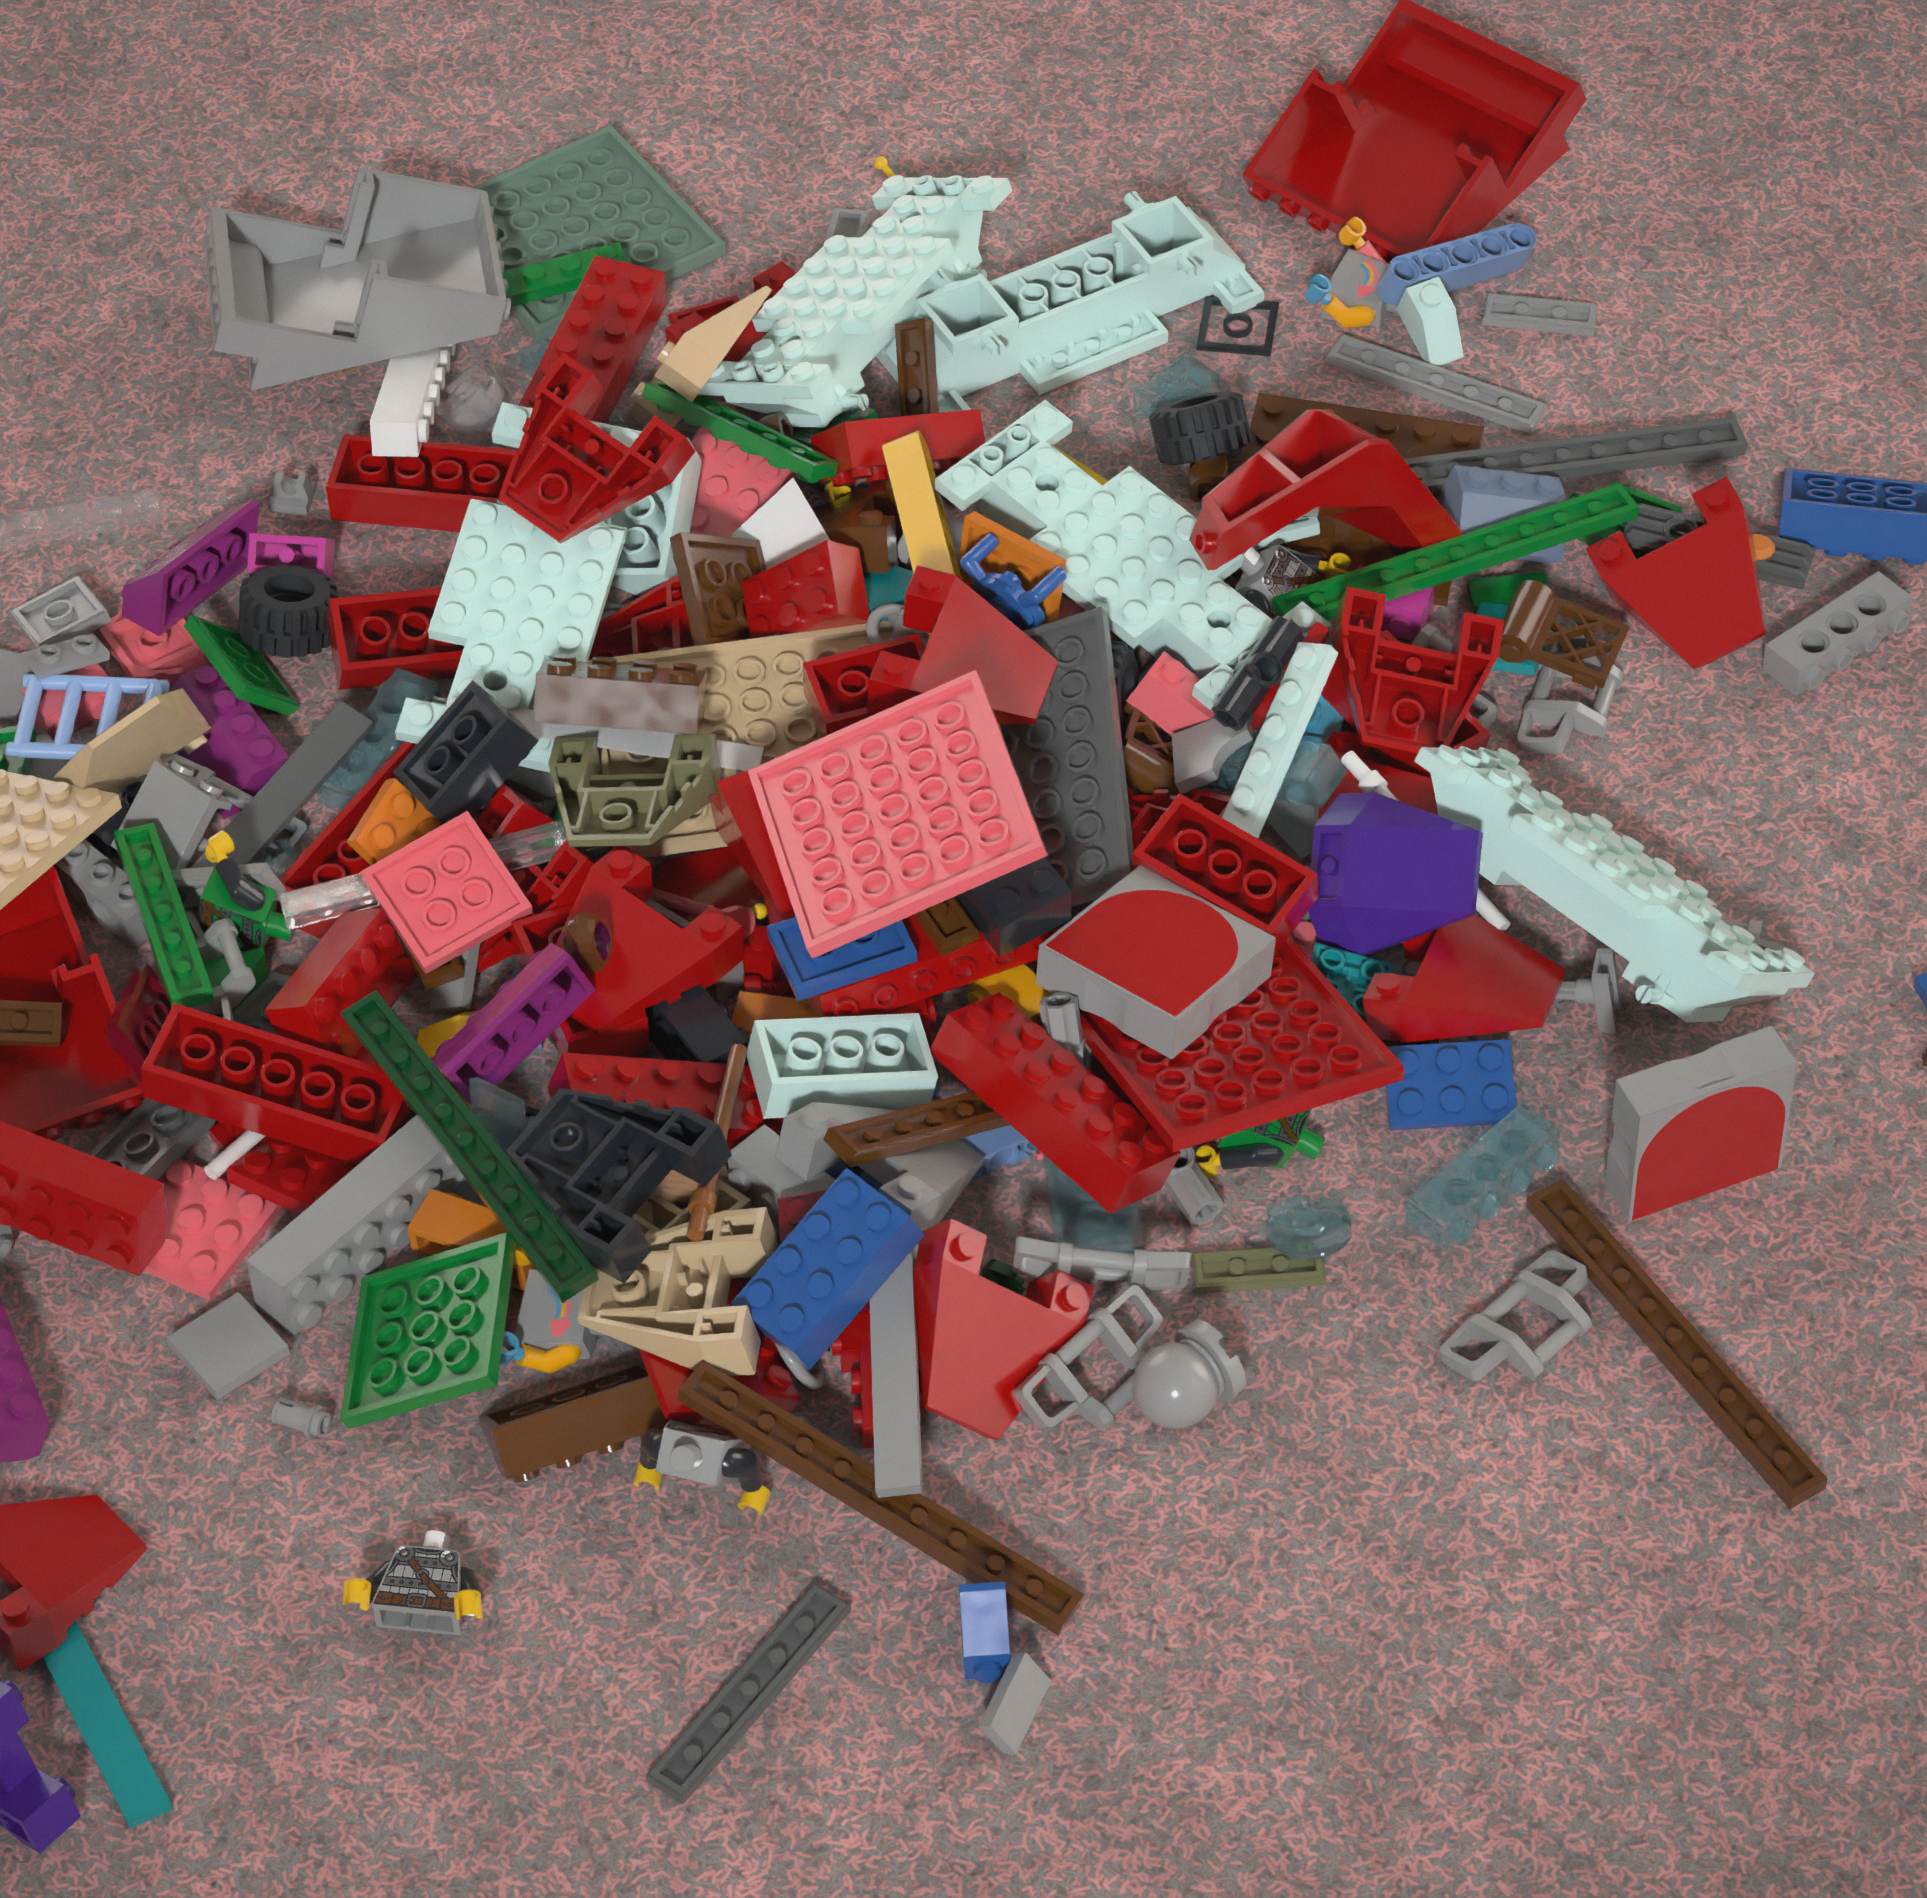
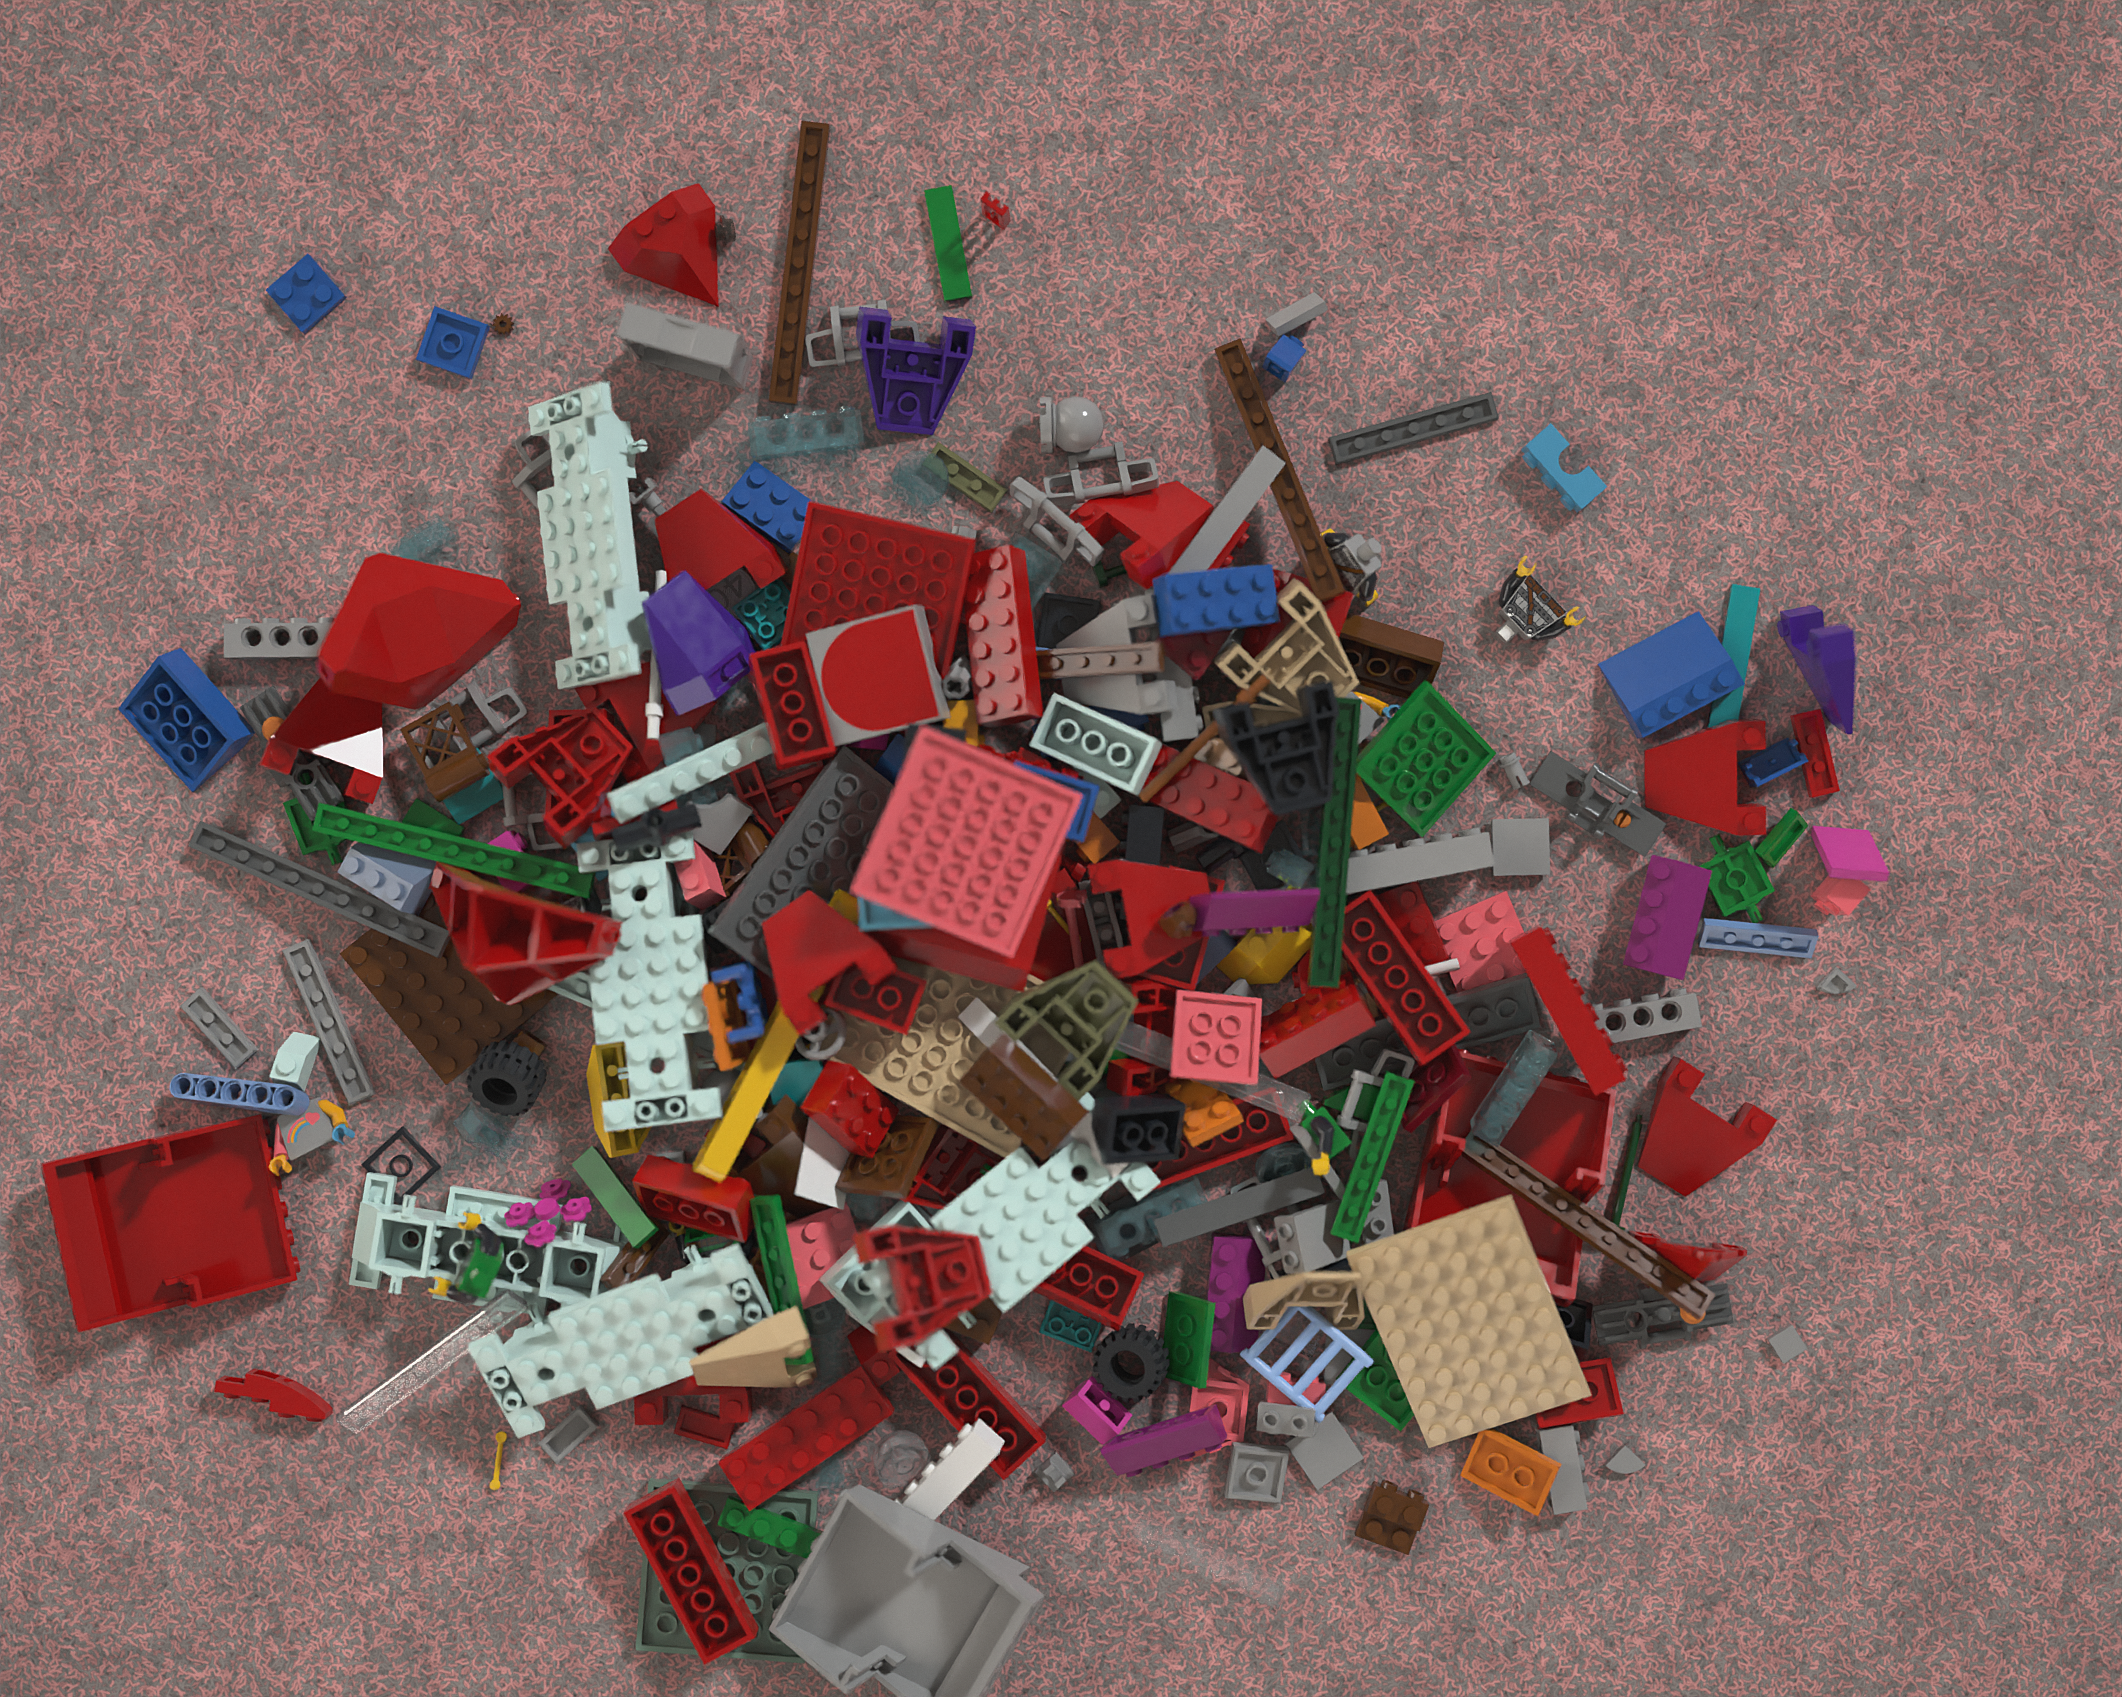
camera: 145 degrees left, 40 degrees up
(40, 1078) = (1513, 1088): none -> clear light blue brick
(162, 1448) = (1595, 813): none -> dark grey piece
(174, 1641) = (1670, 674): none -> blue slope
(476, 1758) = (1544, 454): none -> dark azure arch
(611, 192) = (691, 1571): none -> red brick
(948, 395) = (615, 1197): none -> green tile
(999, 1207) = (1064, 616): none -> black tile
(1039, 193) = (431, 1361): none -> clear tile
(1046, 354) = (547, 1209): none -> dark pink plant
(1065, 253) = (478, 1266): none -> torso
(1166, 100) = (285, 1395): none -> red slope
(1427, 1304) = (911, 379): none -> dark purple wedge
(1495, 1551) = (999, 215): none -> red tile
(1522, 1486) = (948, 243): none -> green tile
(1715, 685) = (412, 630): none -> red panel
(1791, 801) = (424, 541): none -> clear light blue slope
(1793, 1309) = (725, 230): none -> clear smoke plate
(1831, 1264) = (673, 244): none -> red wedge

